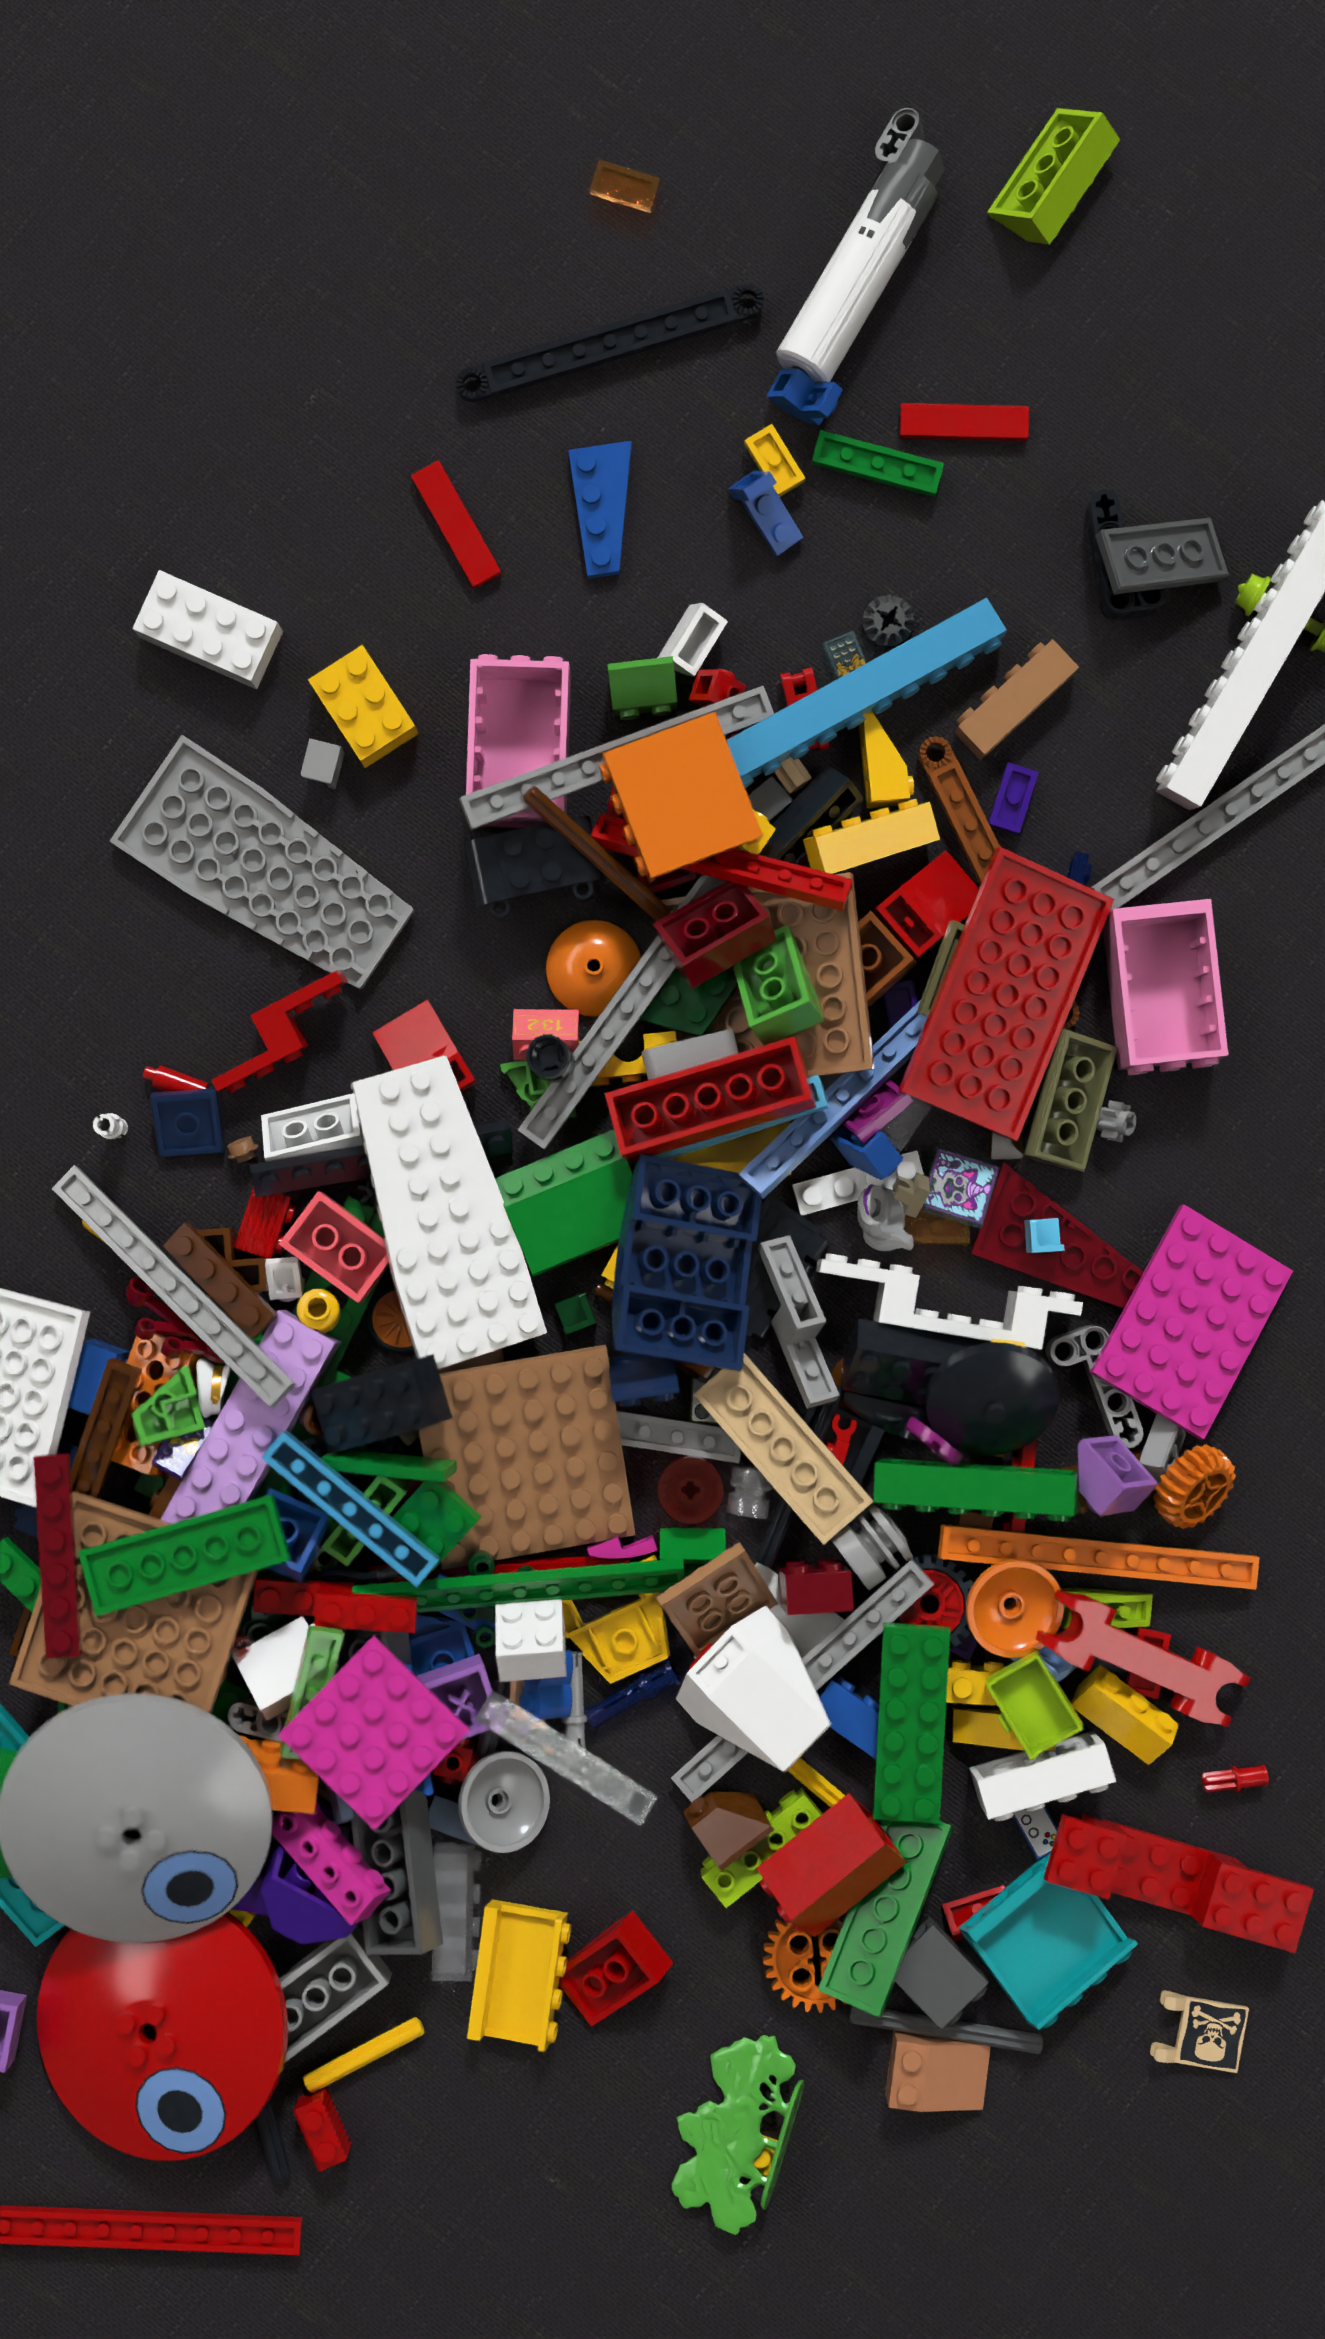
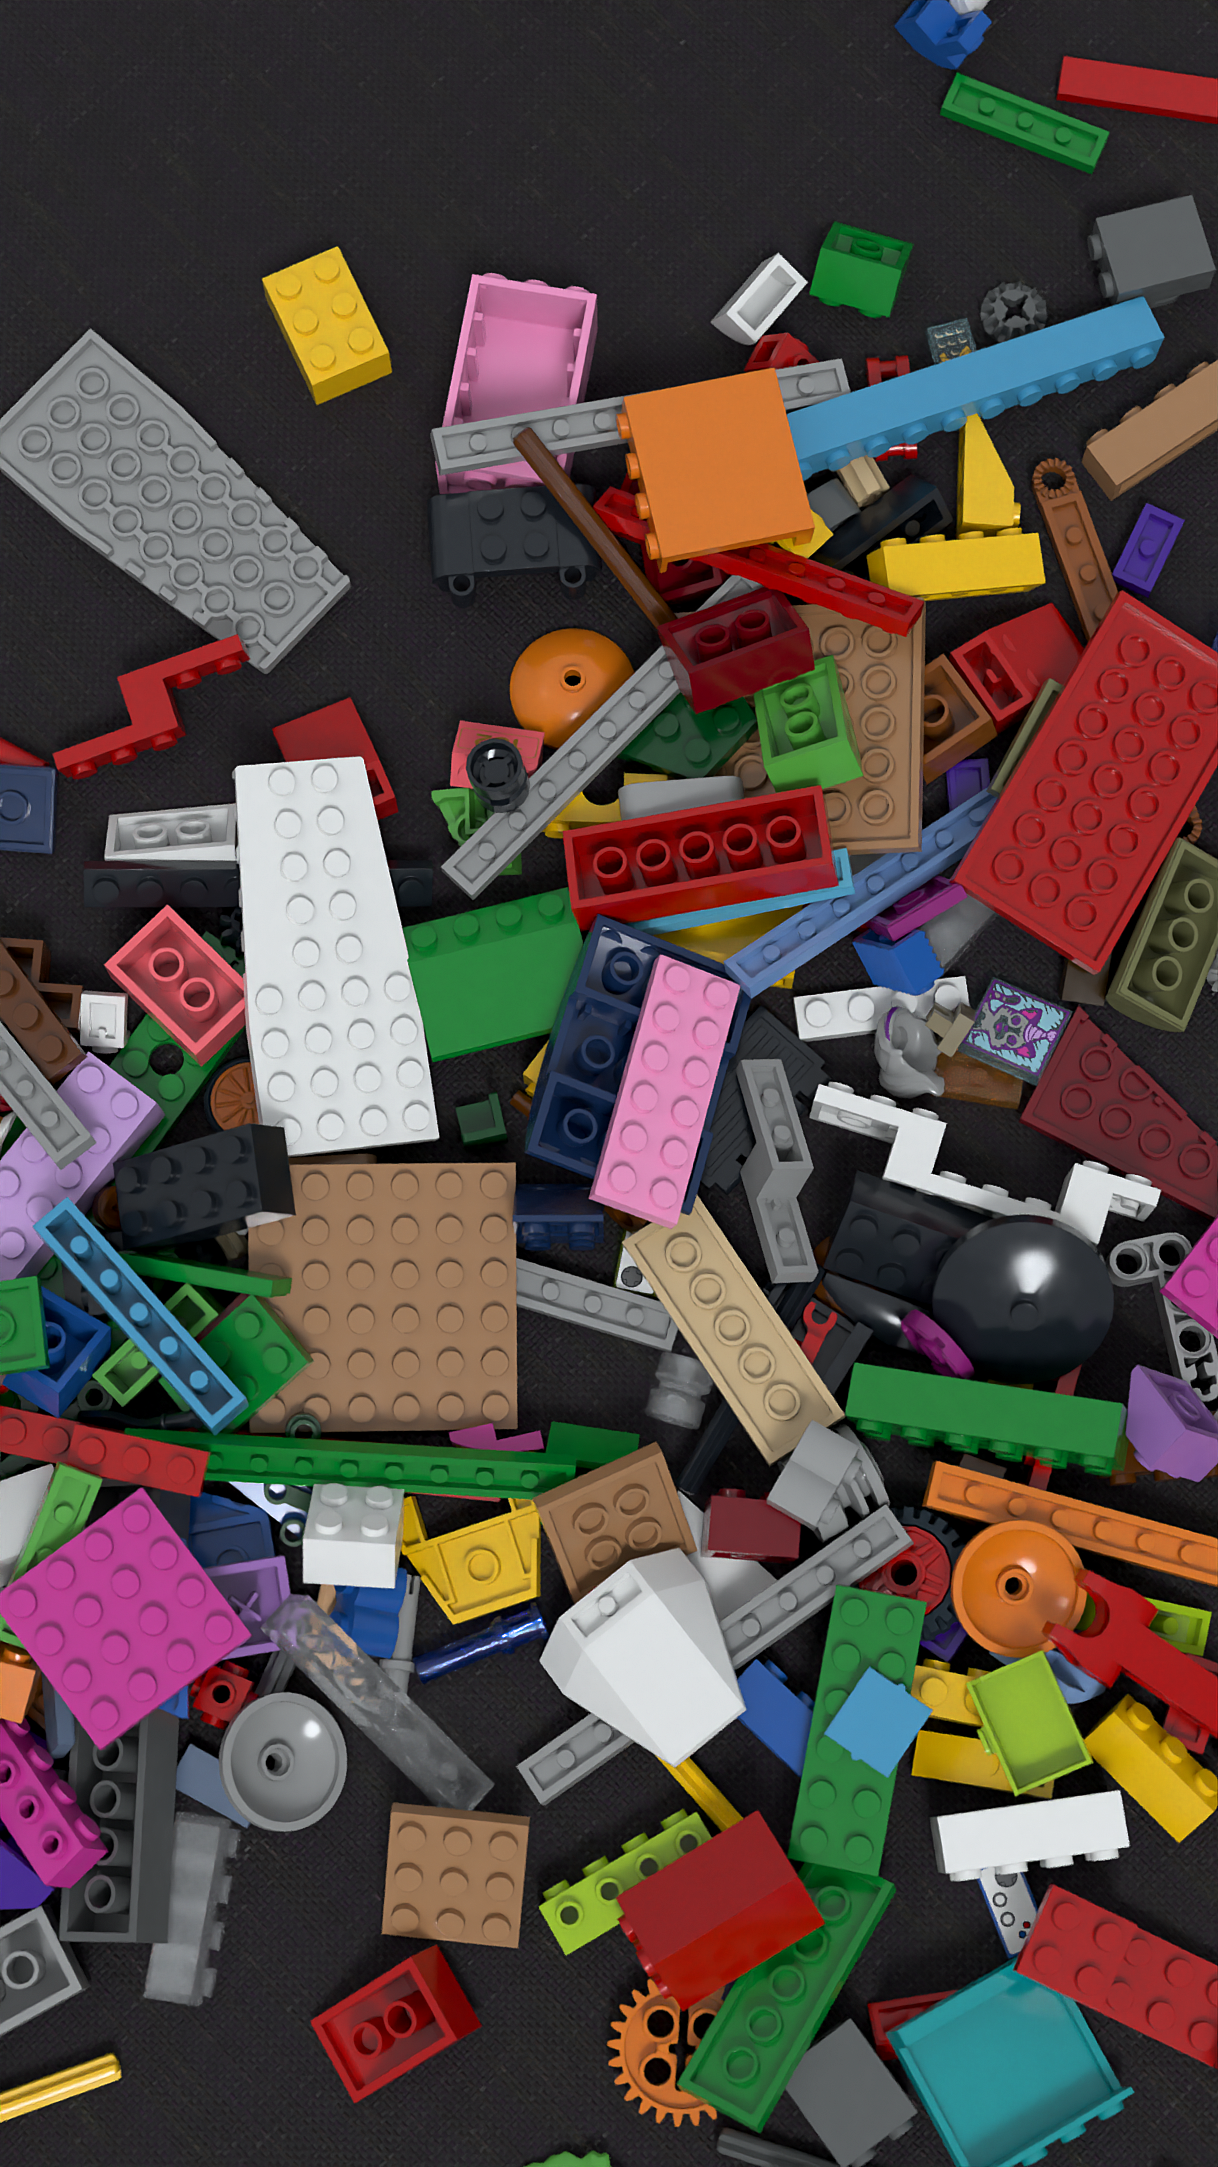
camera: 15 degrees right, 10 degrees down
(207, 629) = (146, 207): white brick -> none
(242, 1149) = (77, 852): medium nougat plate -> none
(265, 1224) = (87, 945): red brick -> none
(319, 1310) = (143, 1062): yellow head -> none
(322, 762) = (264, 385): light grey panel -> none
(456, 524) = (480, 128): red tile -> none
(519, 1974) = (265, 2011): yellow panel -> none
(600, 491) = (668, 118): blue wing -> none
(639, 1863) = (455, 1875): none -> medium nougat plate
(642, 687) = (686, 343): bright green slope -> none
(705, 1500) = (583, 1354): clear red brick -> none
(710, 1283) = (665, 1092): none -> bright pink plate
(728, 1824) = (584, 1836): reddish brown slope -> none
(767, 510) = (876, 159): blue bracket -> none
(767, 602) = (860, 270): none -> green slope
(773, 456) = (894, 103): yellow plate -> none
(858, 1553) = (814, 1475): none -> light grey brick
(926, 1719) = (878, 1721): none -> dark azure piece
(988, 561) = (1152, 253): none -> dark grey brick
(1042, 1235) = (1118, 1105): medium azure panel -> none

